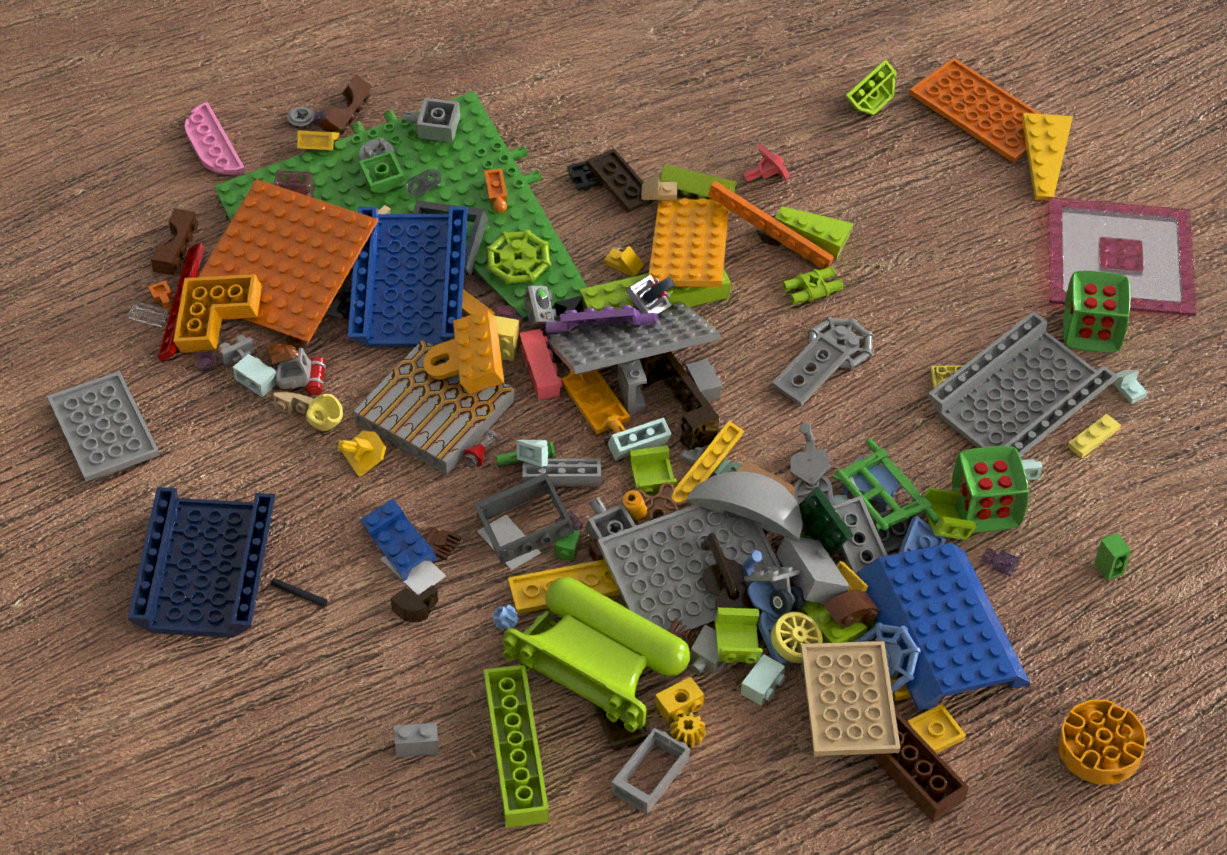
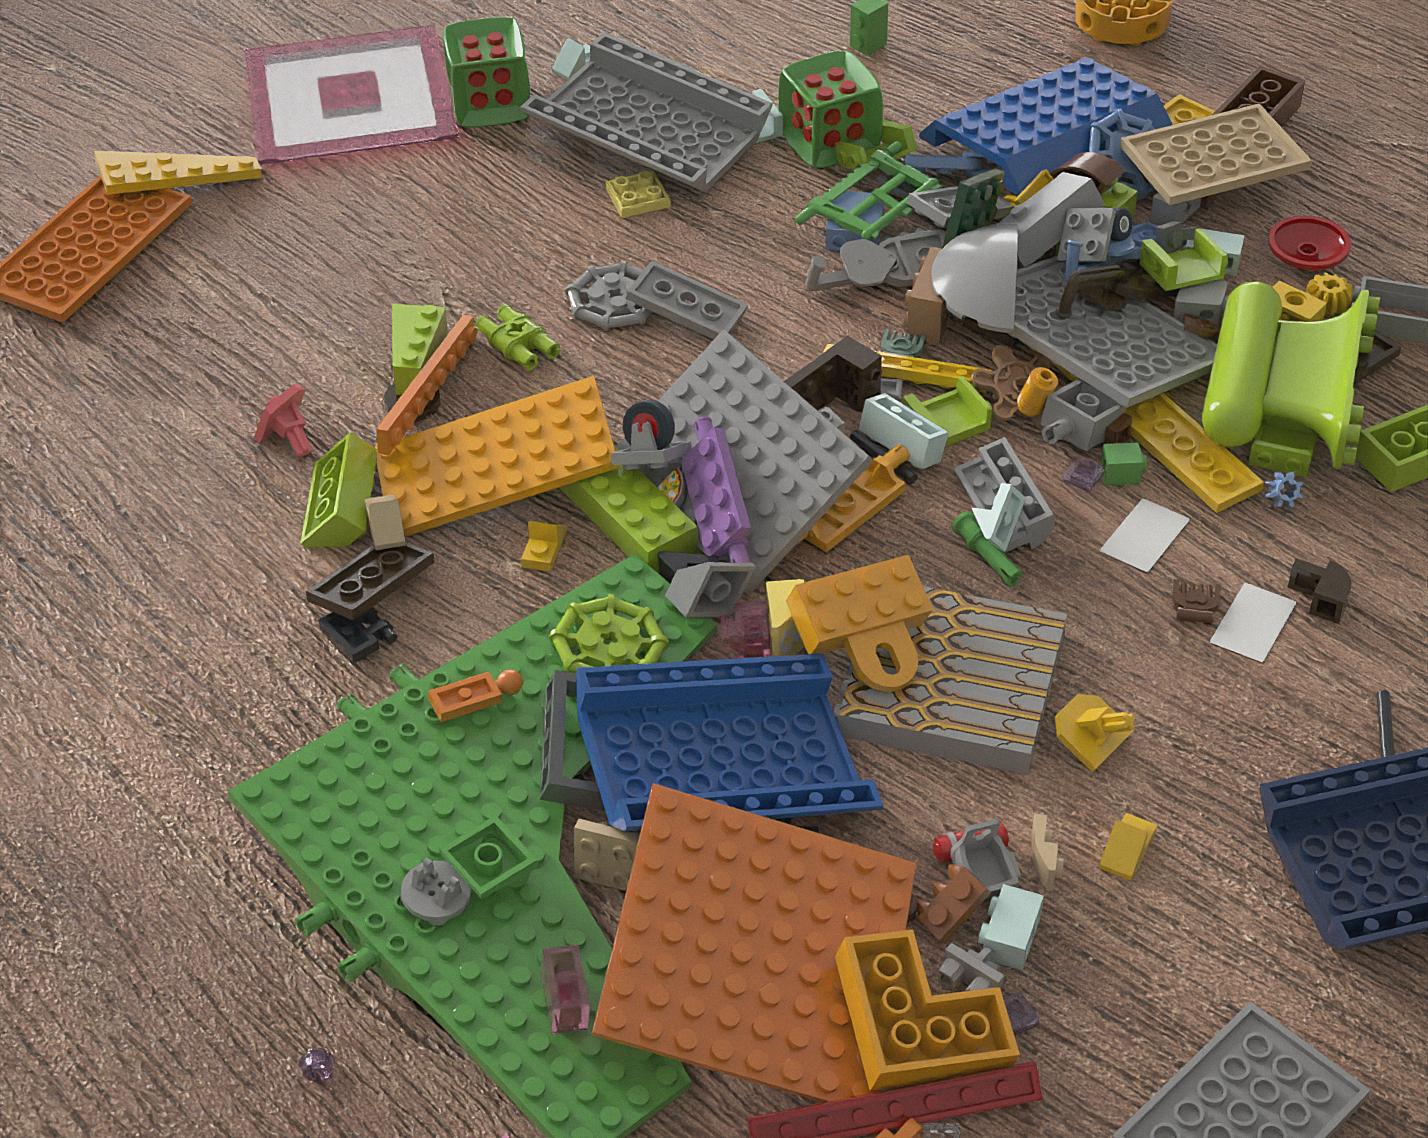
camera: 105 degrees left, 5 degrees down
(283, 444) = (1127, 846): none -> yellow slope
(302, 112) = (321, 1085): light grey gear -> none
(316, 140) = (407, 1009): yellow panel -> none
(324, 412) = (1052, 793): light yellow piece -> none
(354, 94) = (323, 1019): reddish brown arch -> none
(397, 538) = (1231, 634): blue piece -> none
(423, 182) = (480, 792): plate -> none
(436, 119) = (341, 803): light grey brick -> none
(474, 455) = (1020, 596): piece -> none
(516, 496) = (1093, 536): dark grey window -> none
(539, 364) = (827, 559): coral brick -> none
(742, 725) = (1309, 242): none -> red dish
(767, 640) = (1170, 235): none -> dark grey plate
(797, 630) = (1147, 218): light yellow wheel -> none
(873, 89) = (70, 351): lime wedge -> none
(1002, 562) = (910, 112): plate -> none

